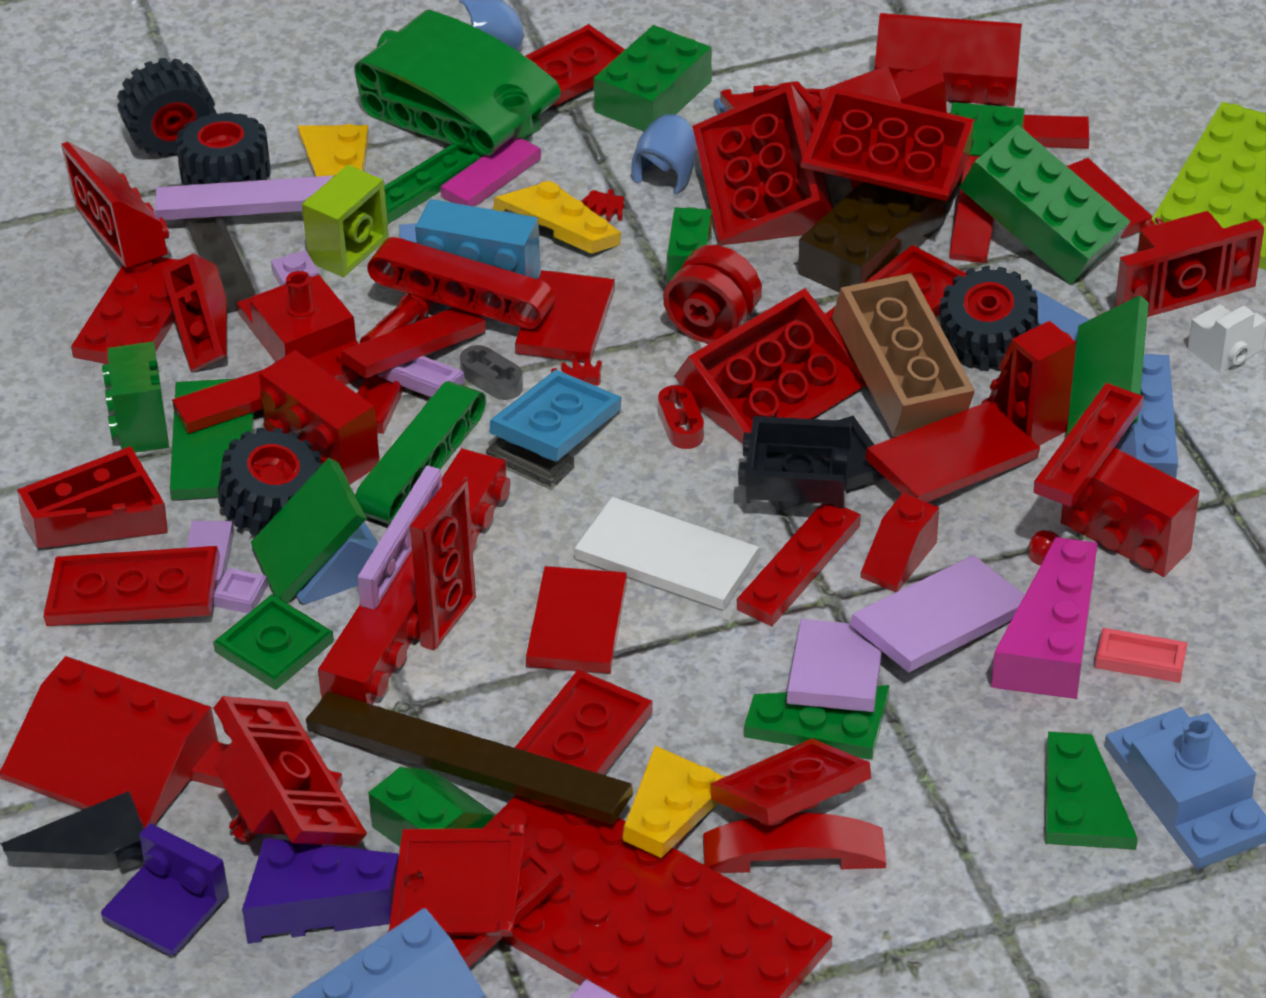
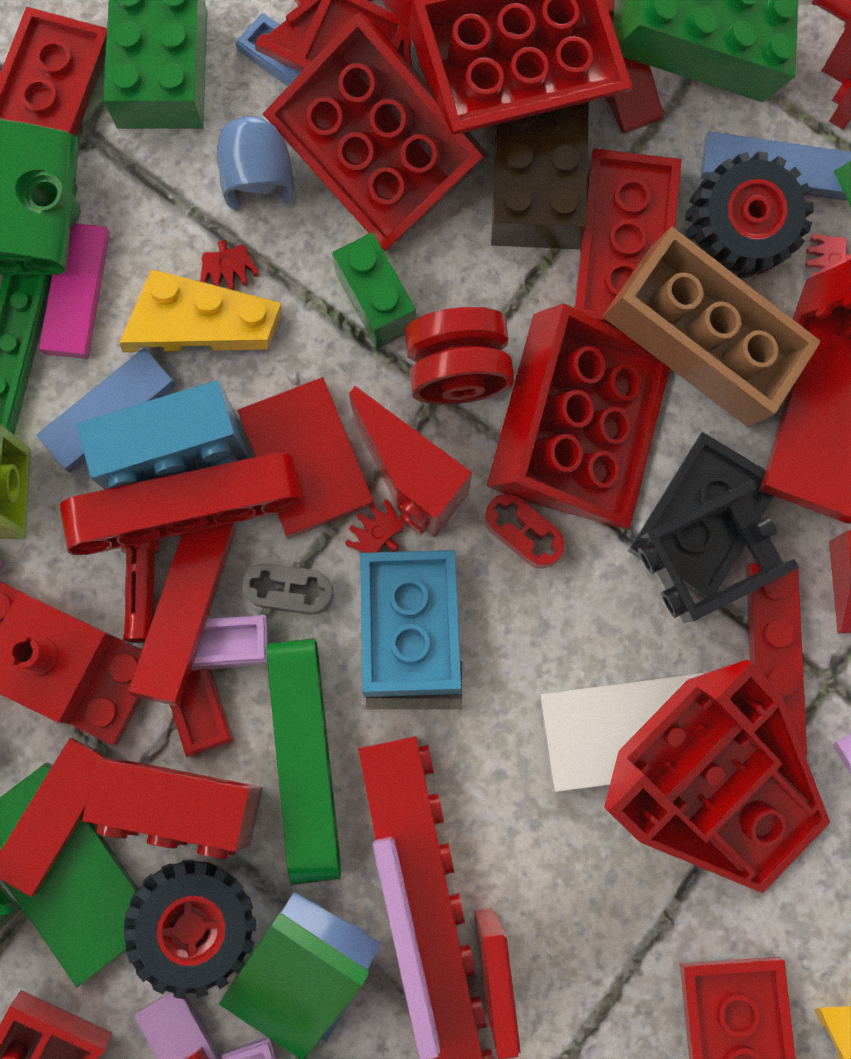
camera: 35 degrees left, 35 degrees up
(576, 619) = (620, 888): red tile -> none
(629, 337) = (418, 474): none -> red slope
(693, 583) = (720, 779): none -> red wedge

